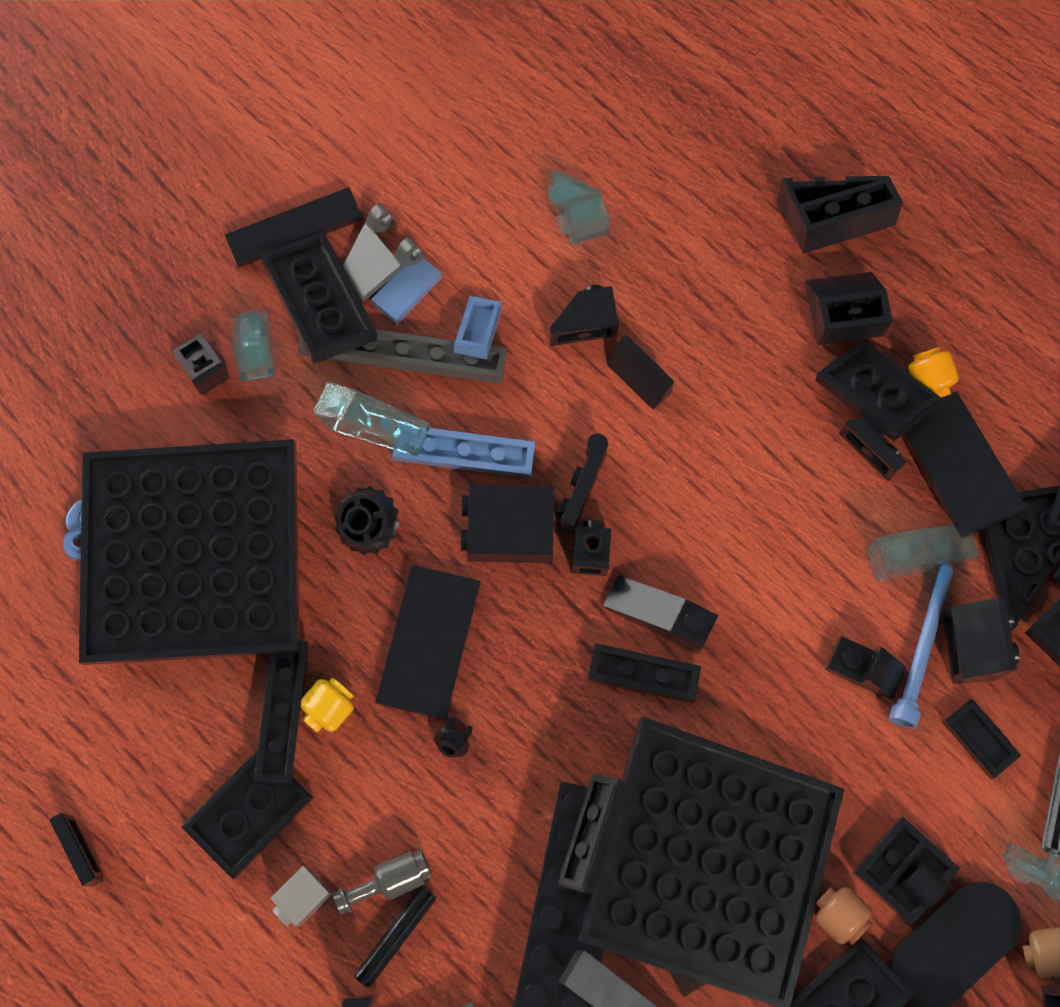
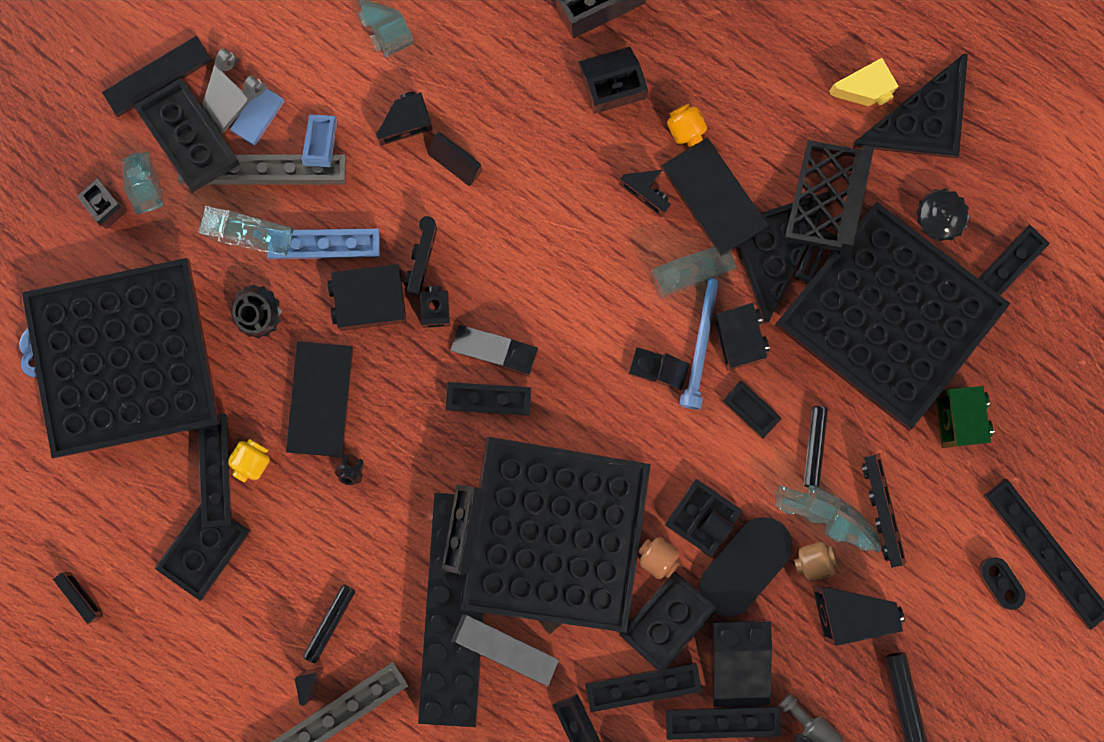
camera: 15 degrees left, 10 degrees up
(300, 897) = (253, 606): light grey brick -> none
(391, 879) = (318, 583): dark grey piece -> none
(878, 390) = (643, 146): black tile -> none

